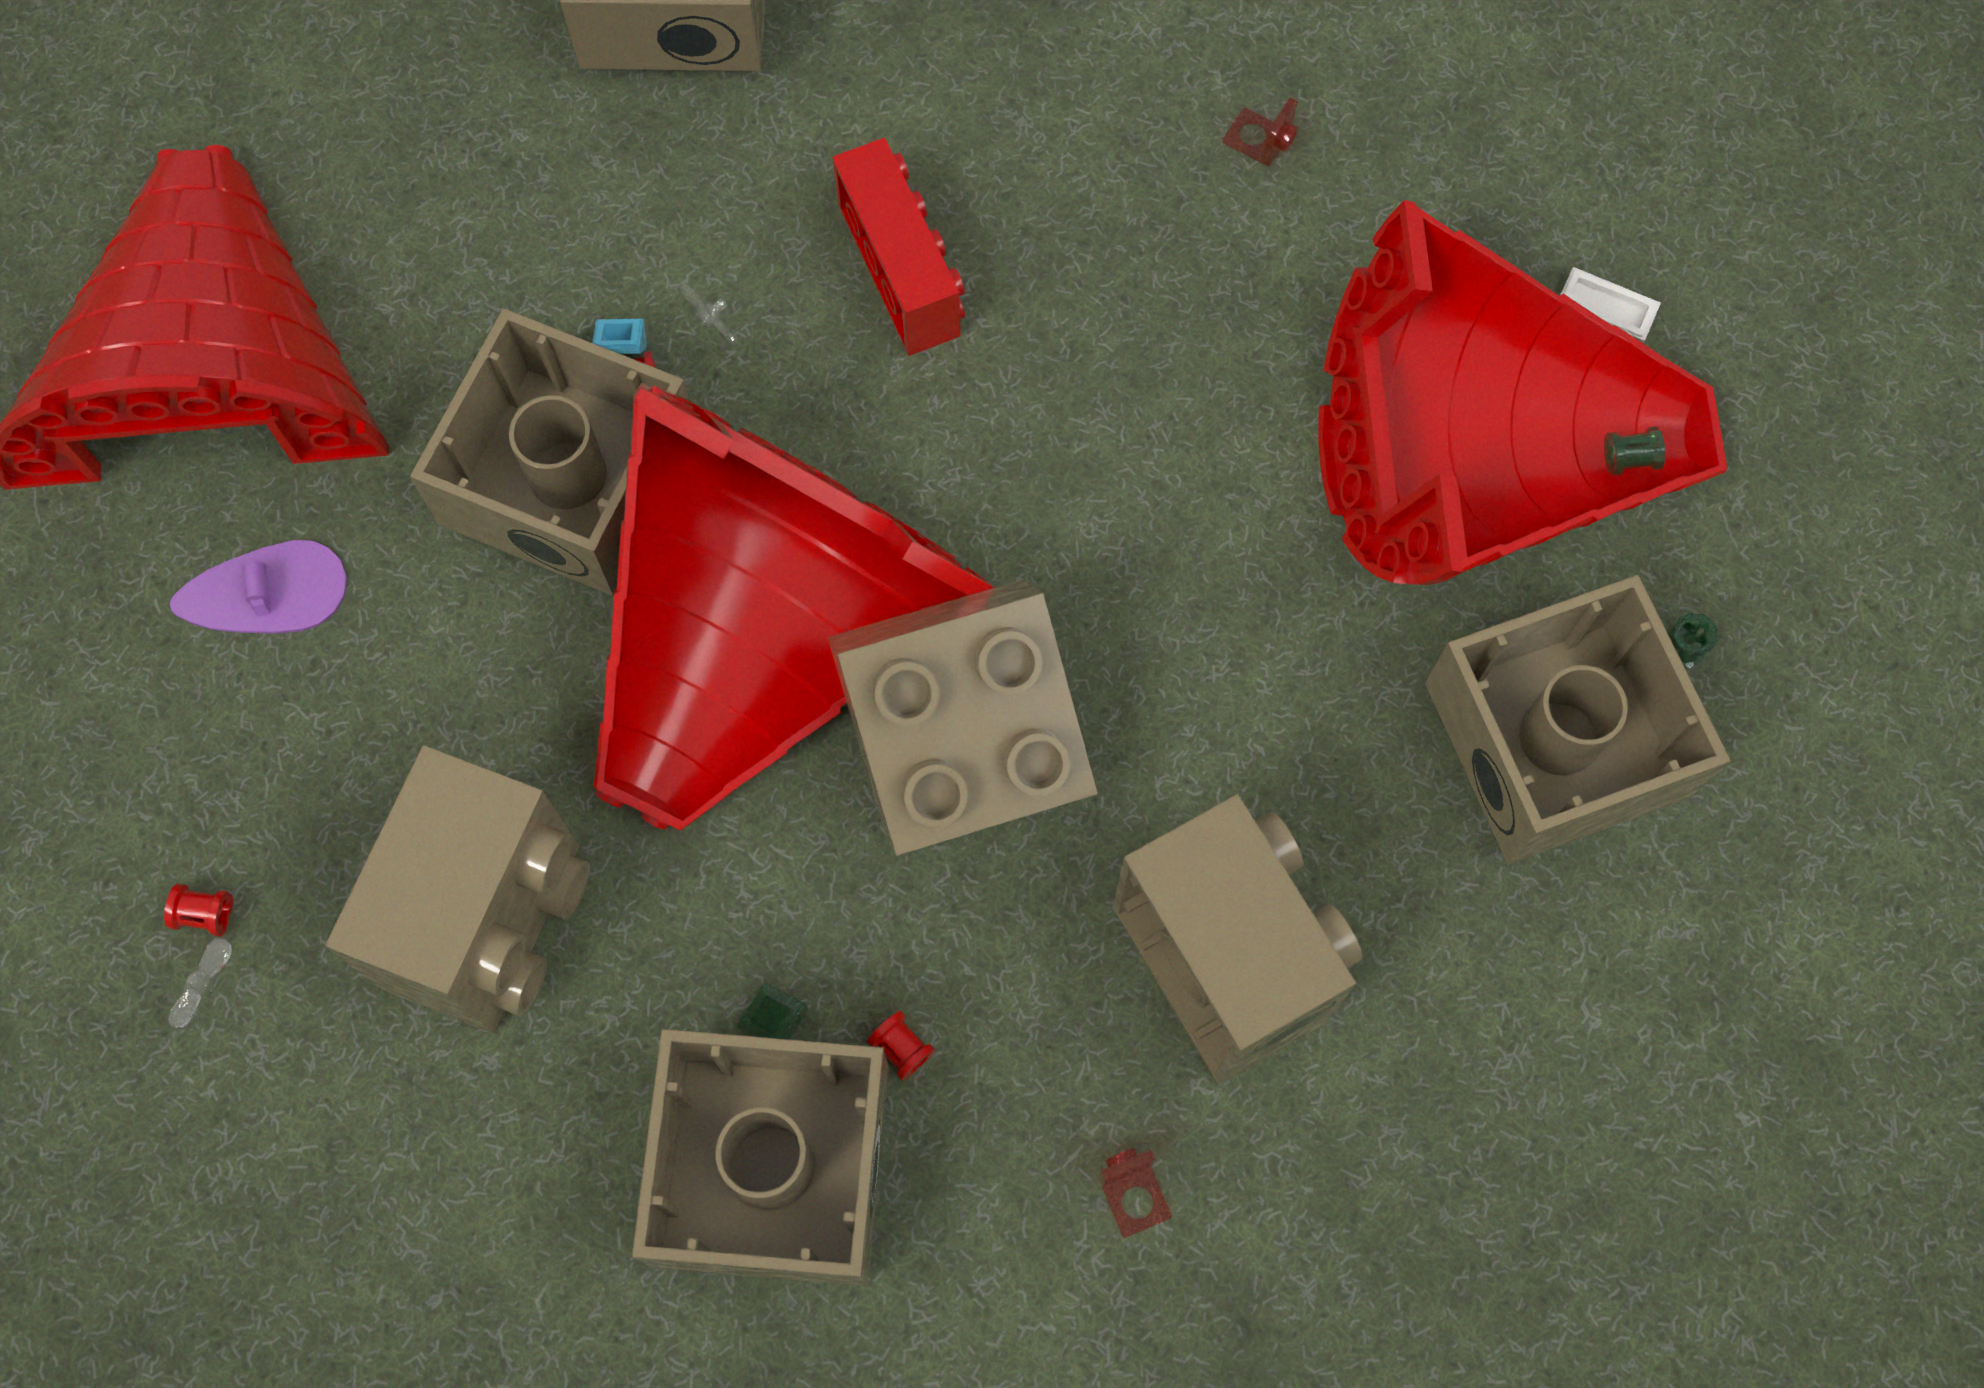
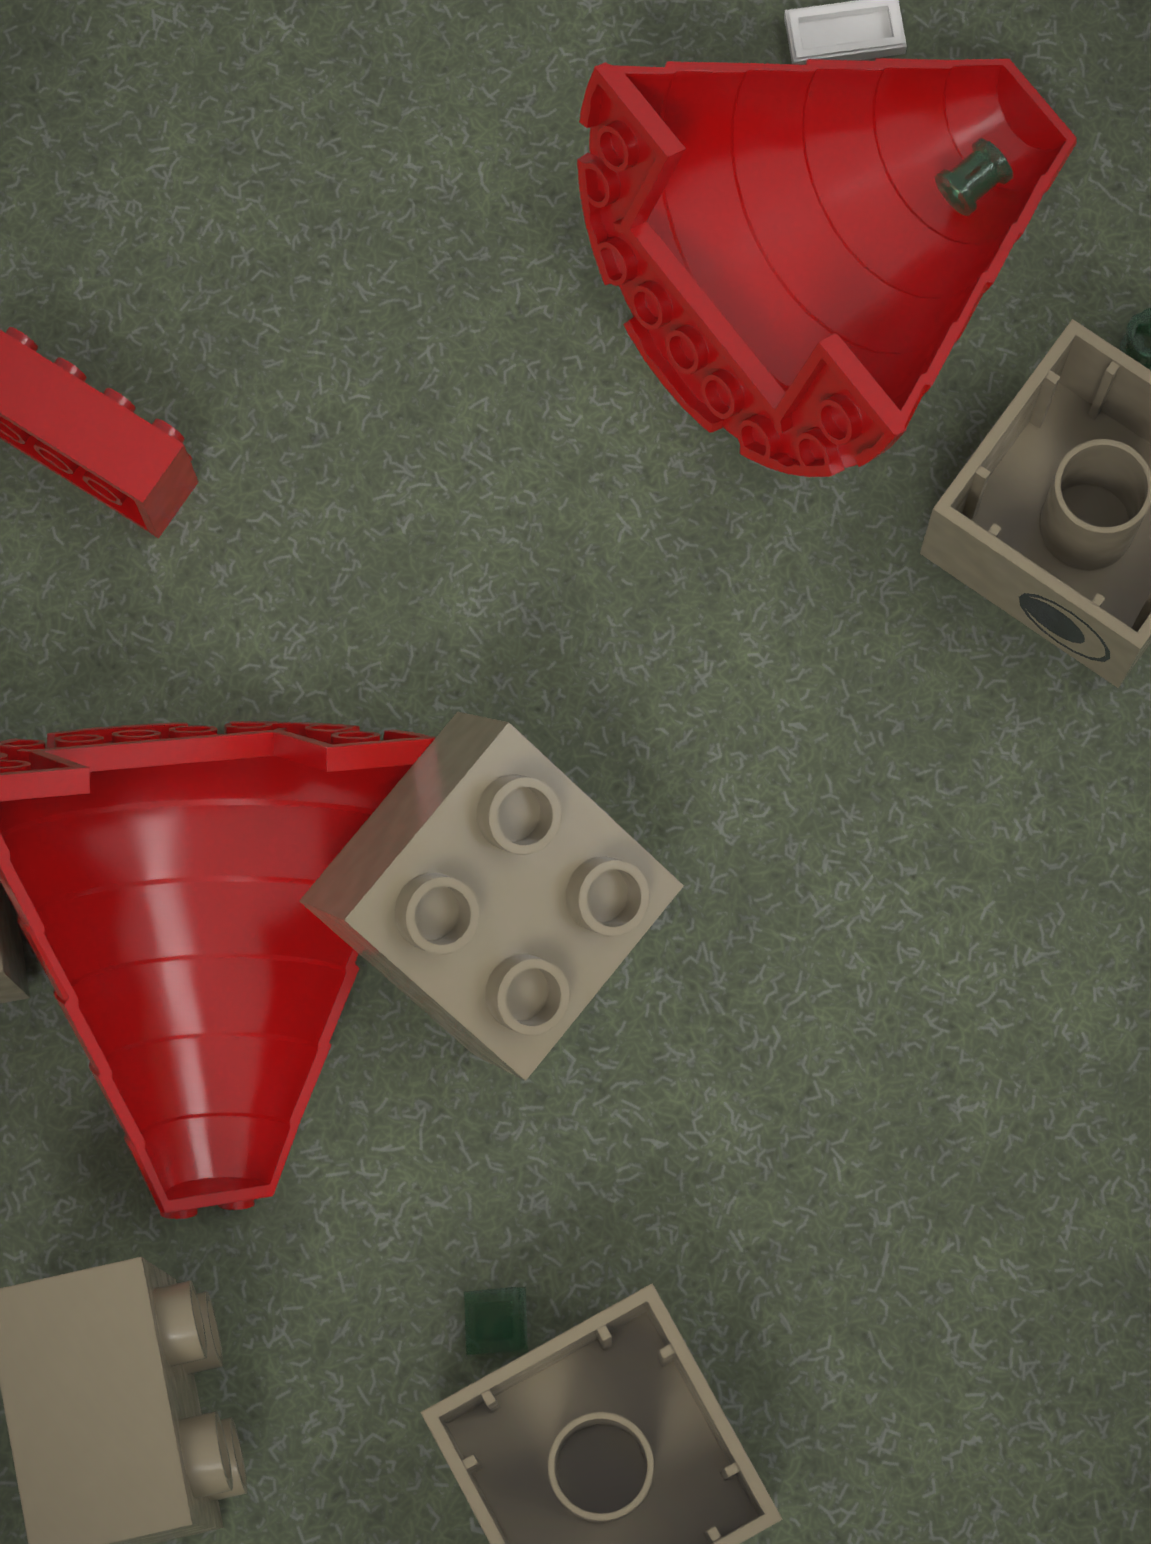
camera: 30 degrees left, 5 degrees up
(901, 1045) = (646, 1263): red bush -> none
(1130, 1171) = (948, 1241): clear red bracket -> none
(1235, 935) = (915, 941): dark tan brick -> none
(1278, 133) = (387, 51): clear red bracket -> none

